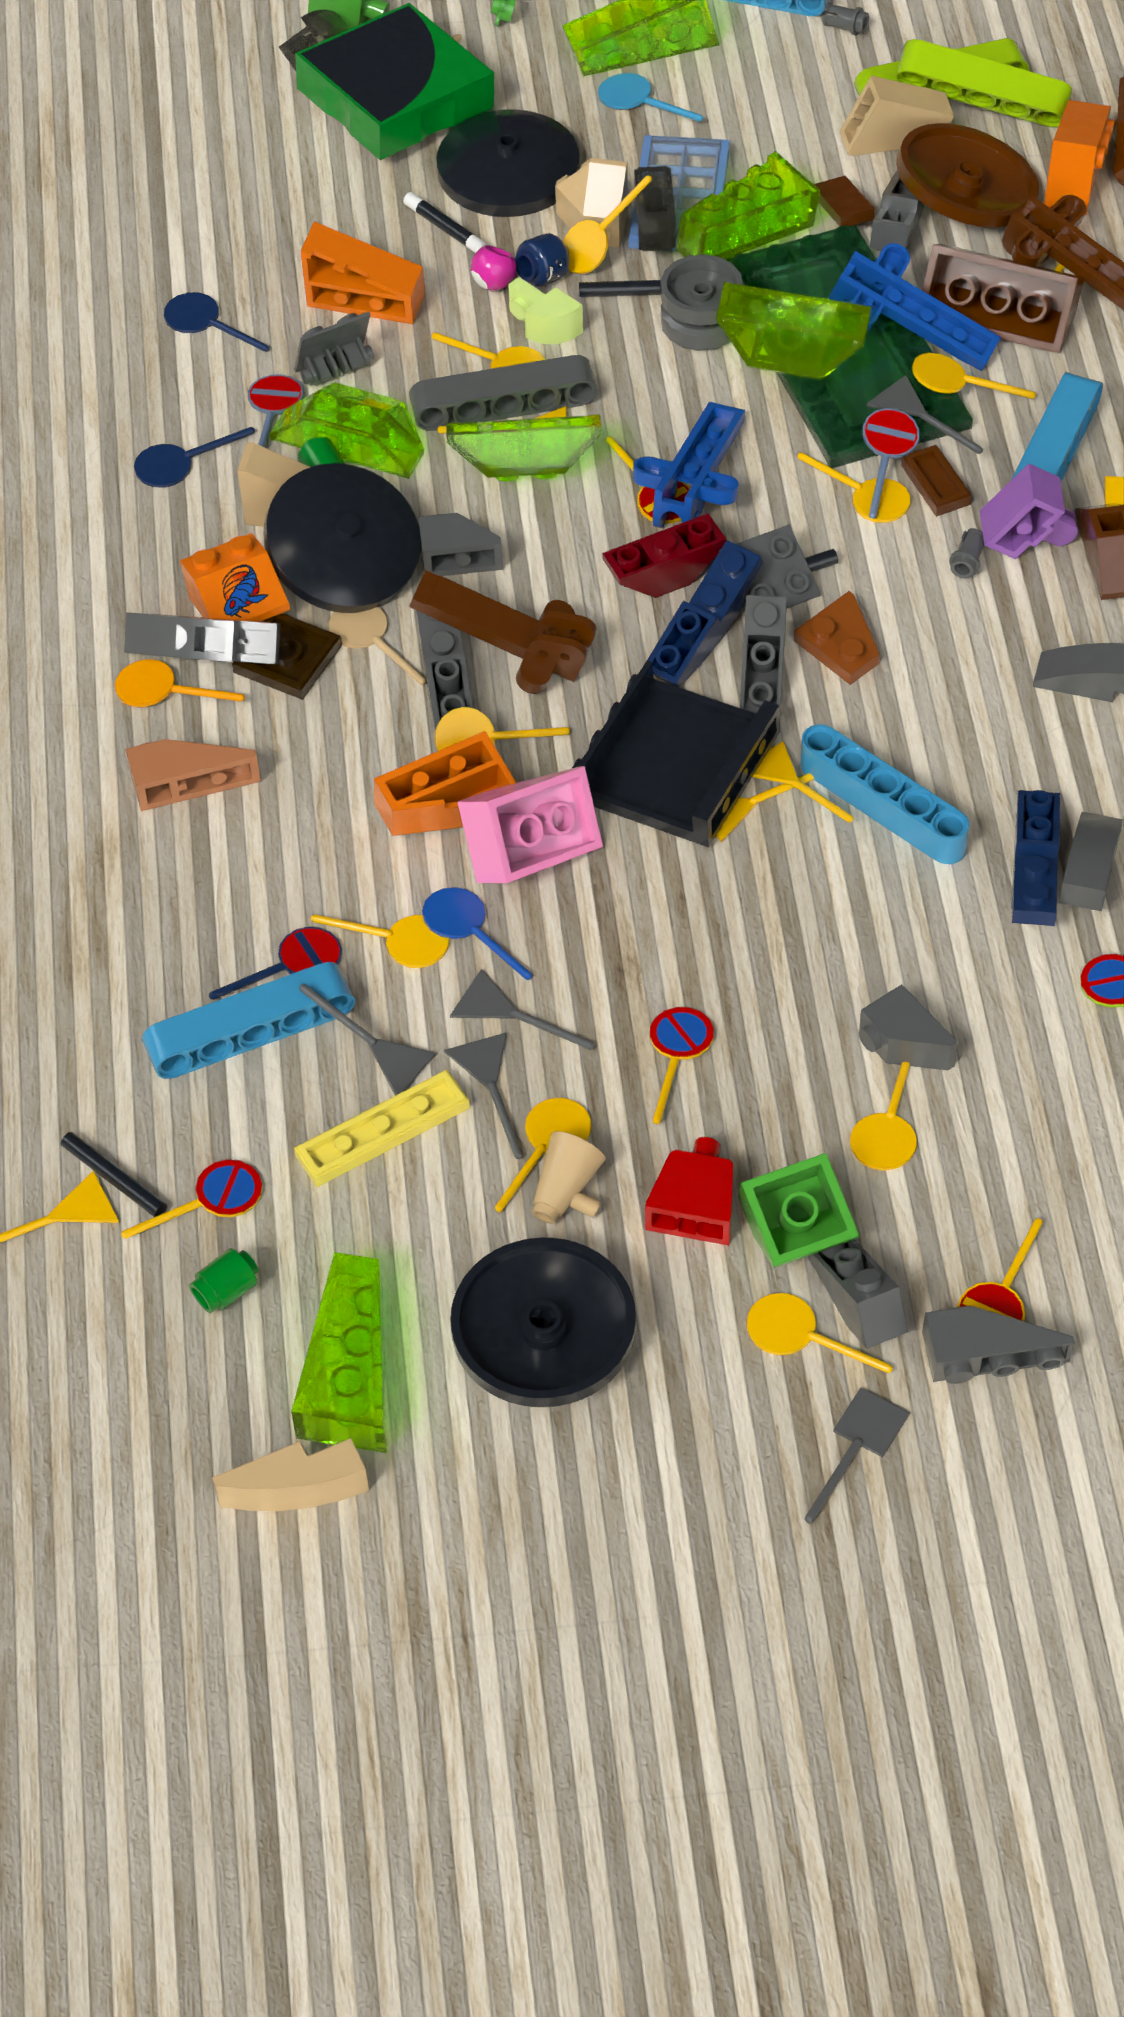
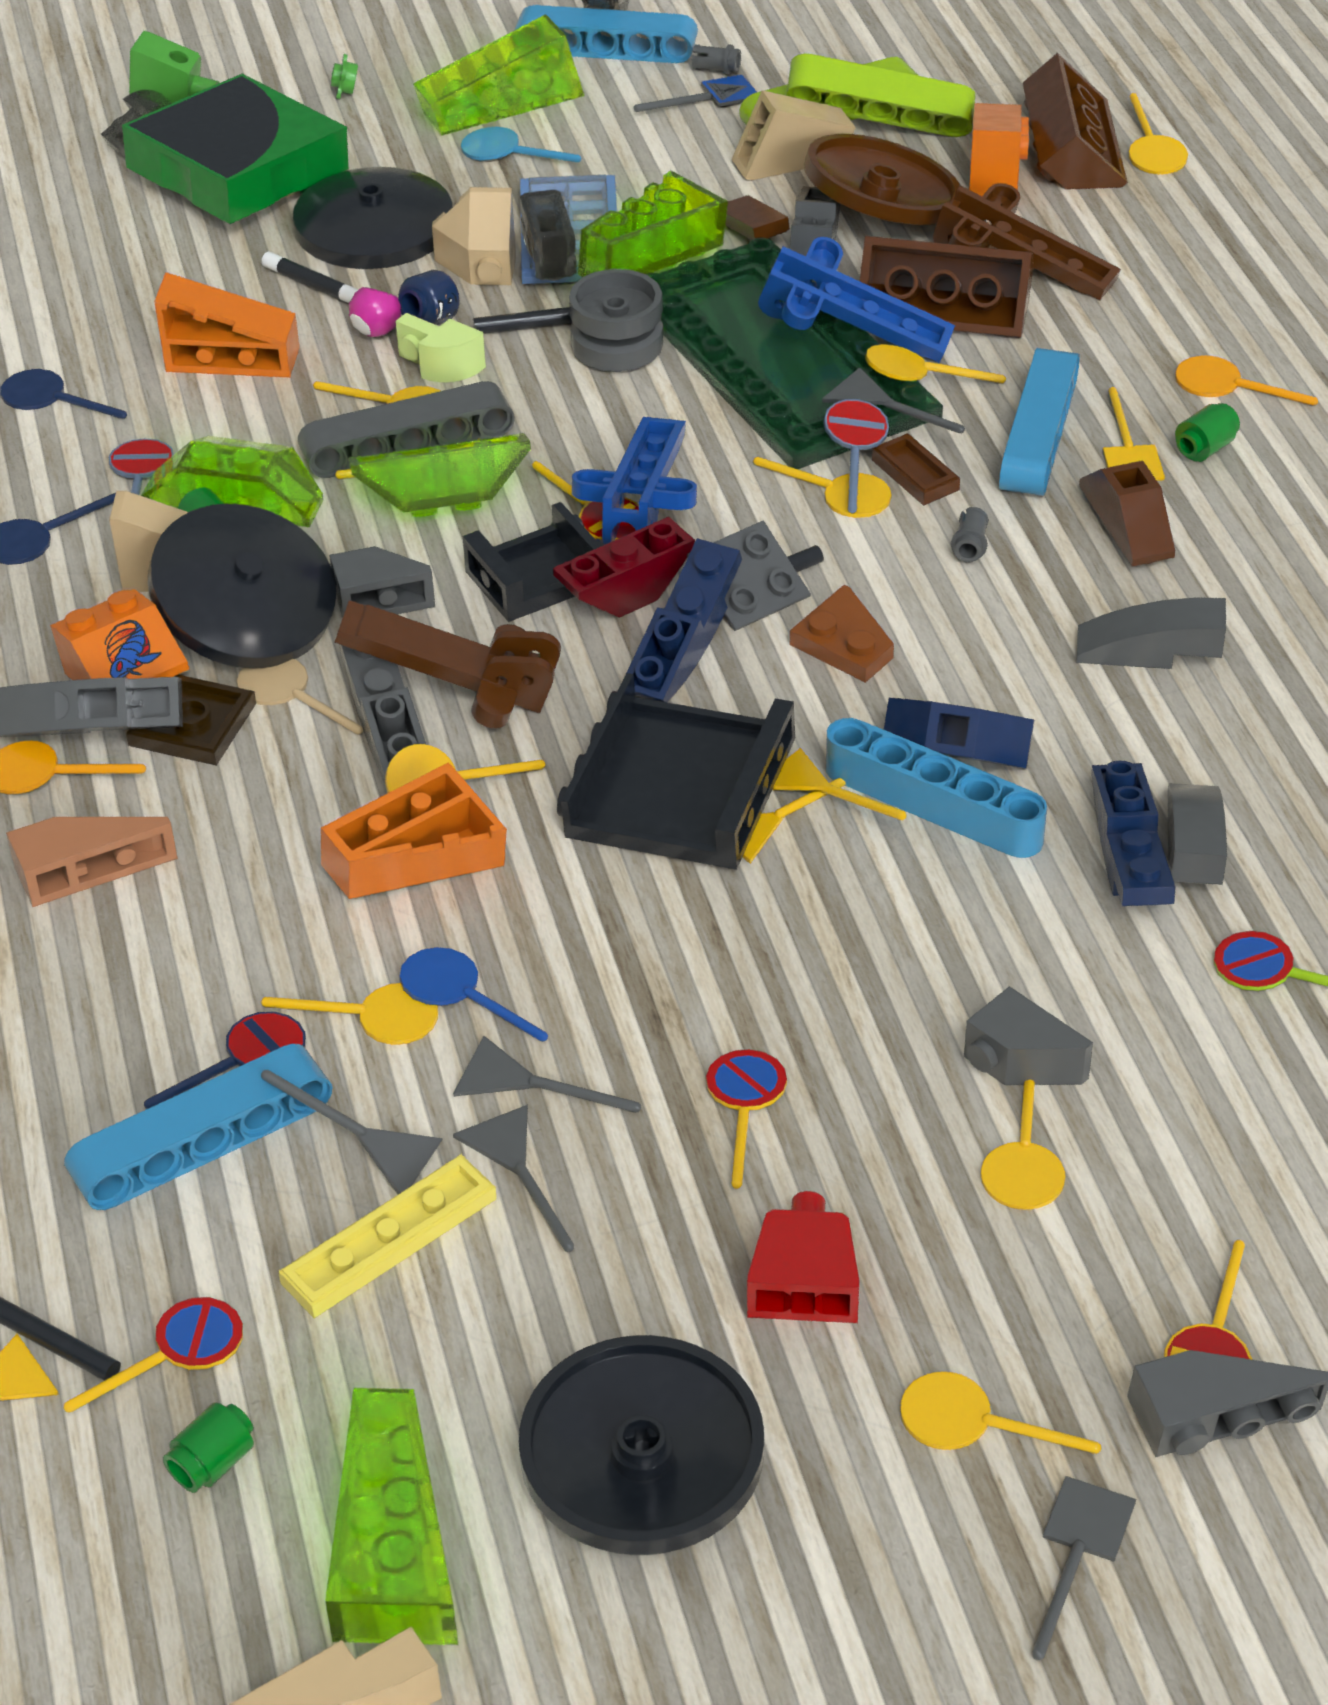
camera: 10 degrees left, 10 degrees down
(340, 341) = (204, 401): dark grey hinge -> none
(530, 825) = (518, 862): bright pink slope -> none
(541, 1122) = (606, 1210): yellow piece -> none
(564, 1174) = (634, 1257): tan piece -> none
(576, 542) = (520, 571): none -> black panel
(588, 239) = (479, 275): yellow piece -> none
(763, 651) = (758, 649): dark grey slope -> none
(791, 330) = (726, 330): clear neon green wedge -> none
(797, 1211) = (940, 1264): bright green slope -> none
(847, 54) = (722, 90): none -> piece
(861, 1293) = (1038, 1350): dark grey slope -> none
(915, 746) = (962, 731): none -> dark blue slope
(1027, 513) = (1031, 483): medium lavender brick -> none

